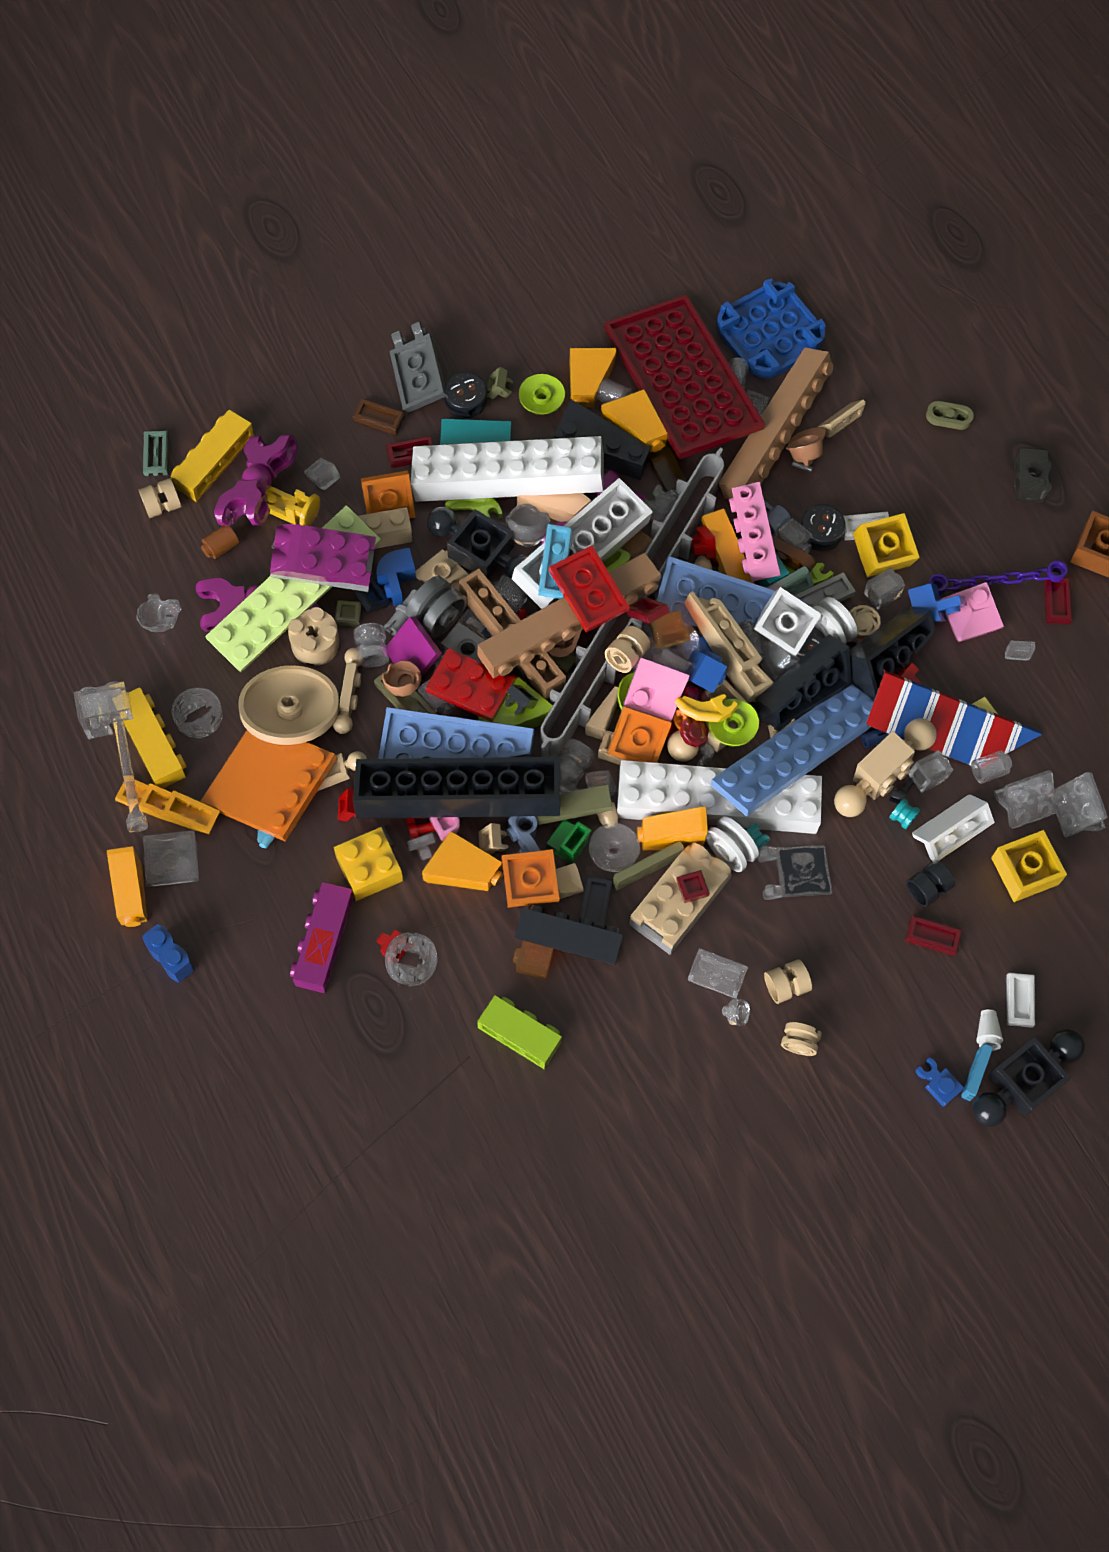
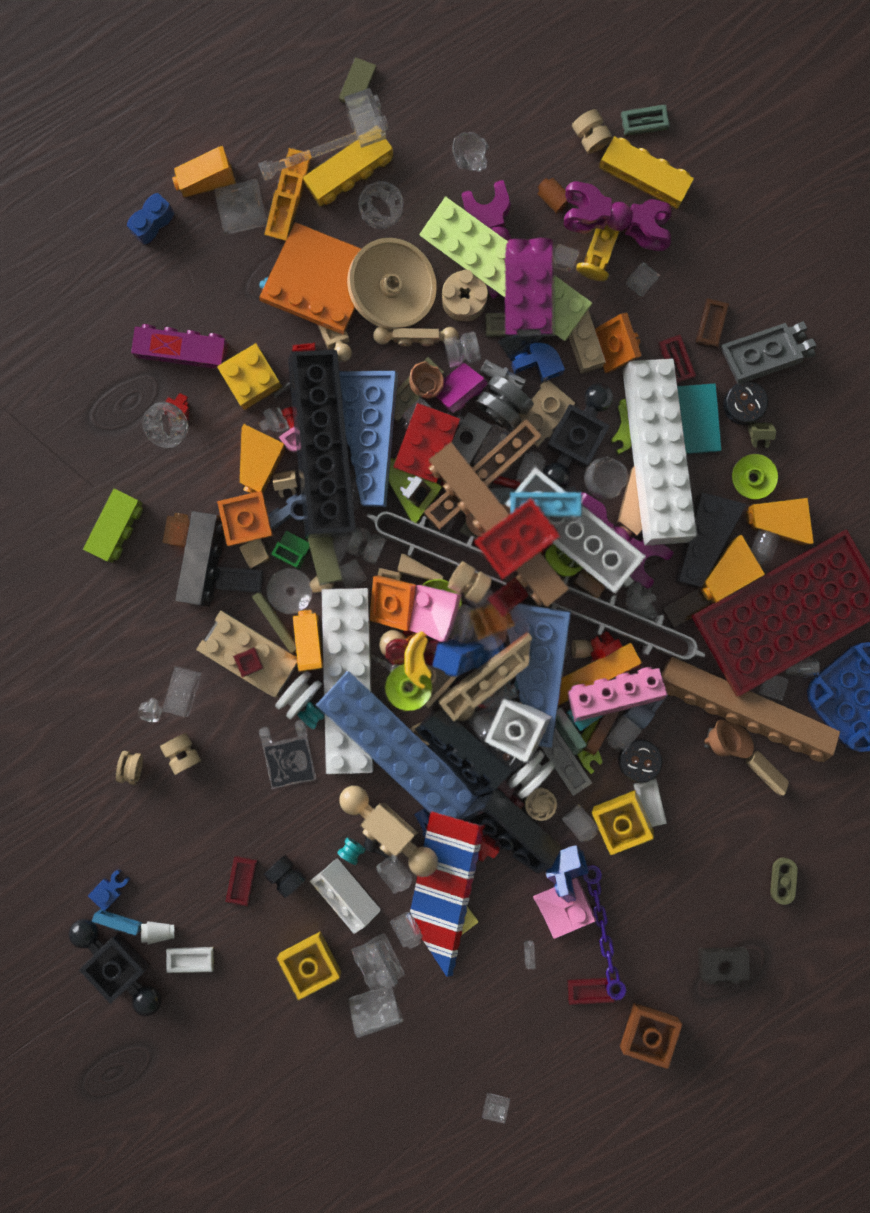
camera: 90 degrees right, 20 degrees up
(55, 722) = (358, 78): none -> olive tile

